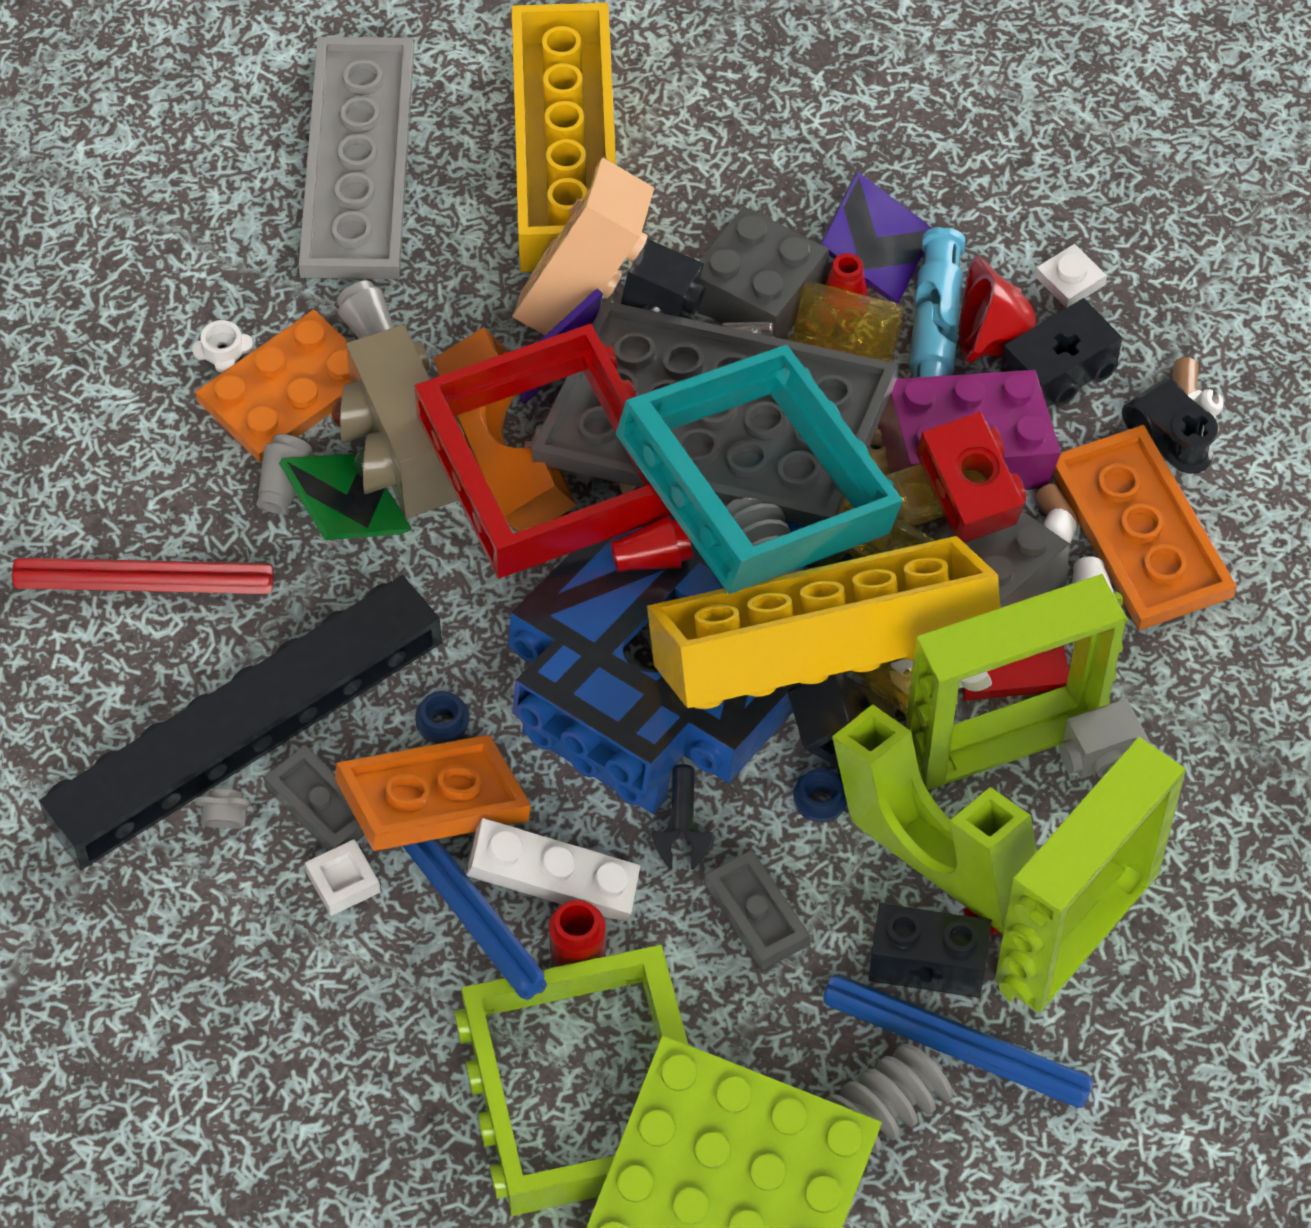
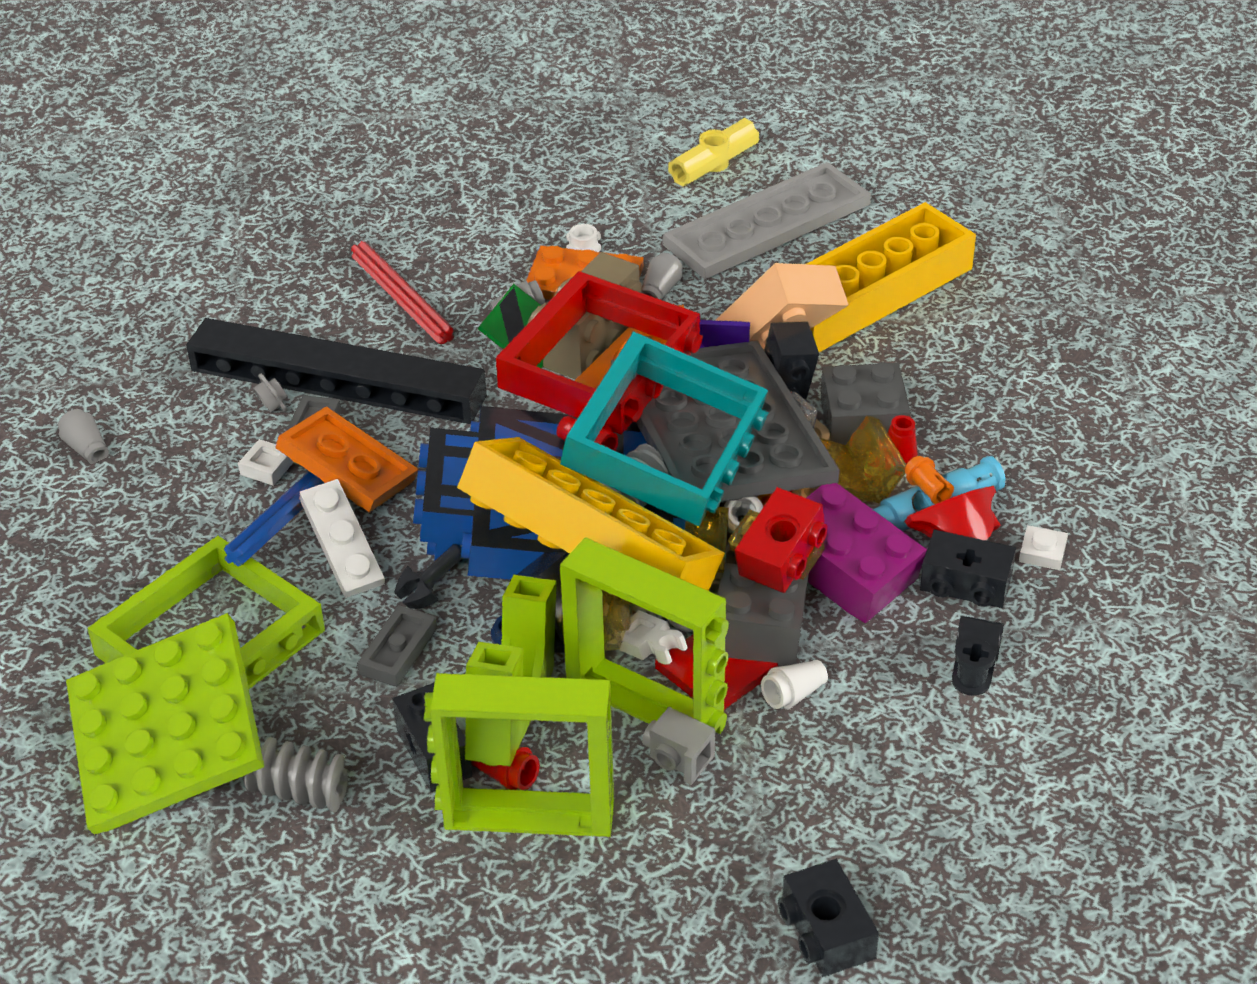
camera: 55 degrees right, 15 degrees down
(123, 1044) = (82, 434): none -> light grey cone
(188, 124) = (713, 152): none -> light yellow piece
(437, 704) = (409, 444): dark blue plate -> none
(576, 933) = (300, 566): red brick -> none
(880, 234) = (956, 434): piece -> none
(938, 301) = (922, 473): none -> orange pin
(958, 1040) = (384, 797): blue axle -> none
(1058, 512) = (837, 639): arm -> none
(1142, 528) = (876, 681): orange plate -> none
(1186, 376) = (1015, 651): arm -> none

